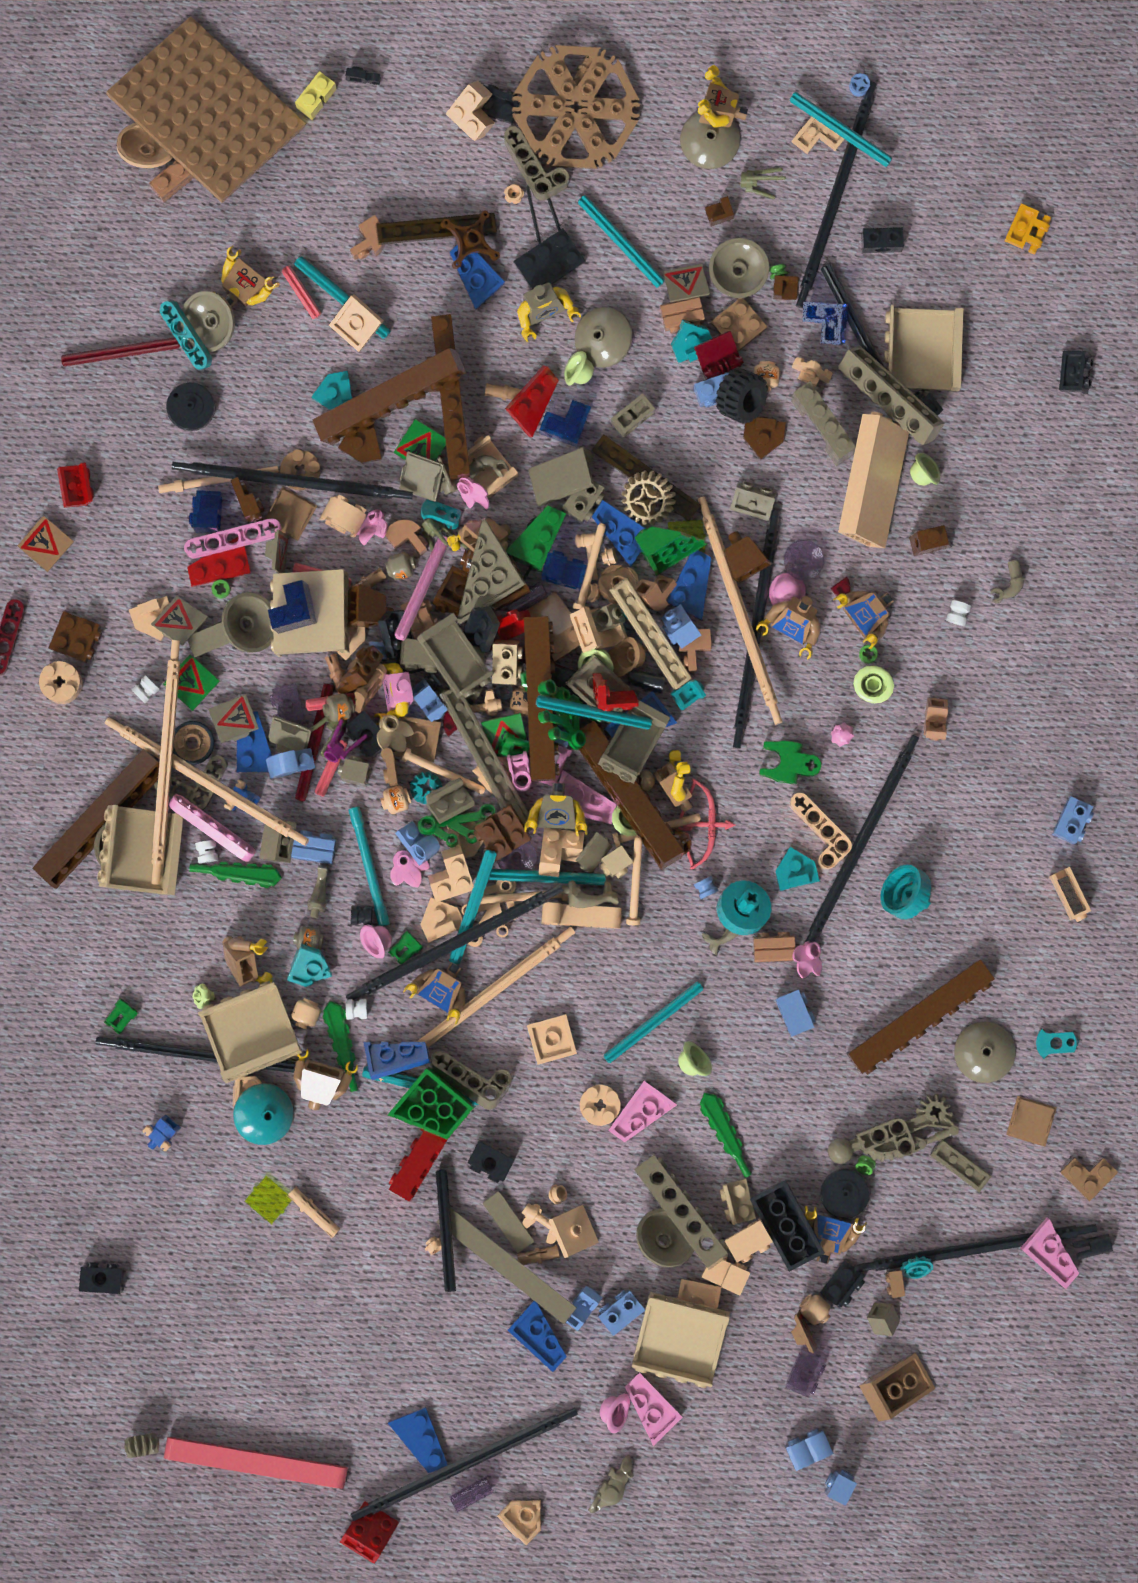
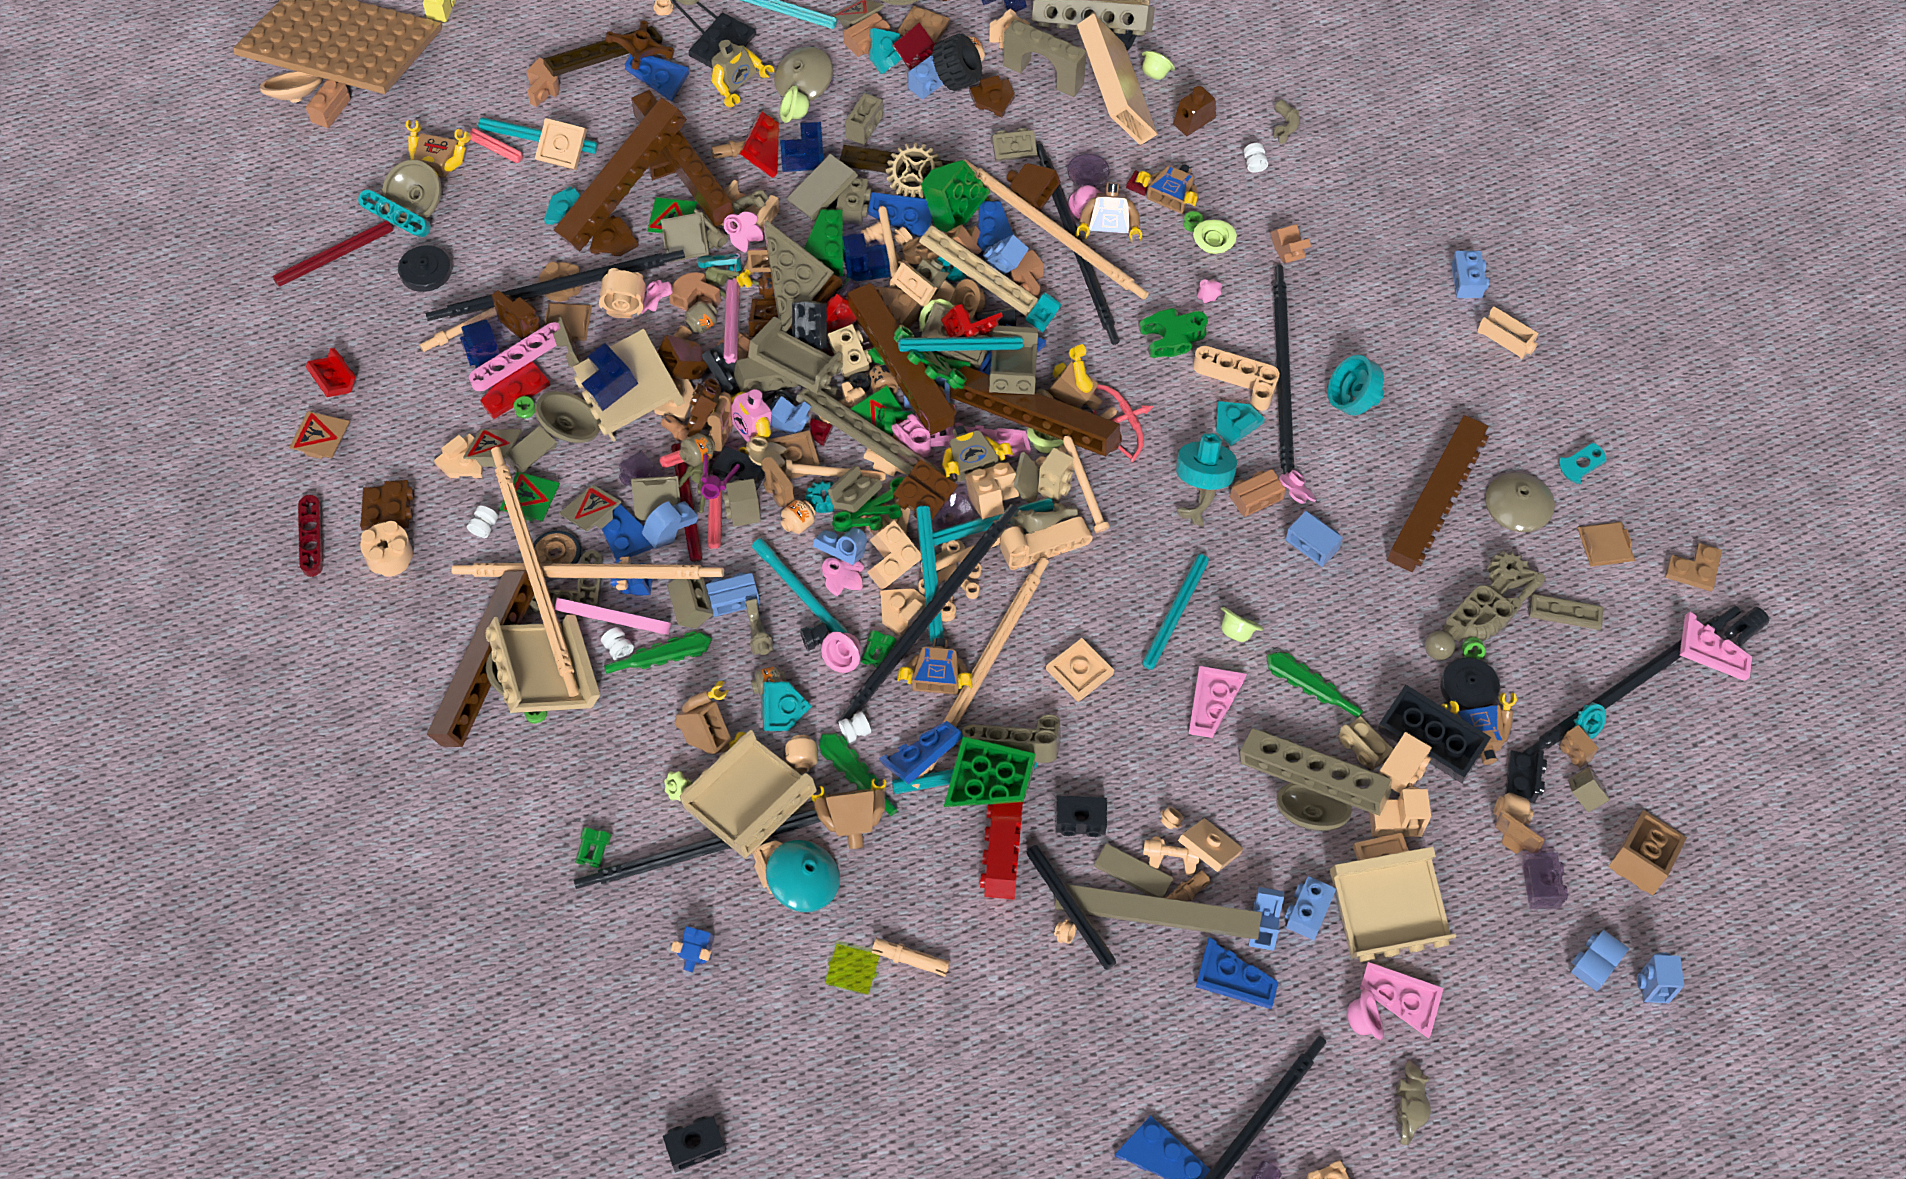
camera: 25 degrees left, 25 degrees down
(606, 1114) = (1160, 723): light nougat plate -> none
(706, 887) = (1157, 467): medium blue wheel -> none

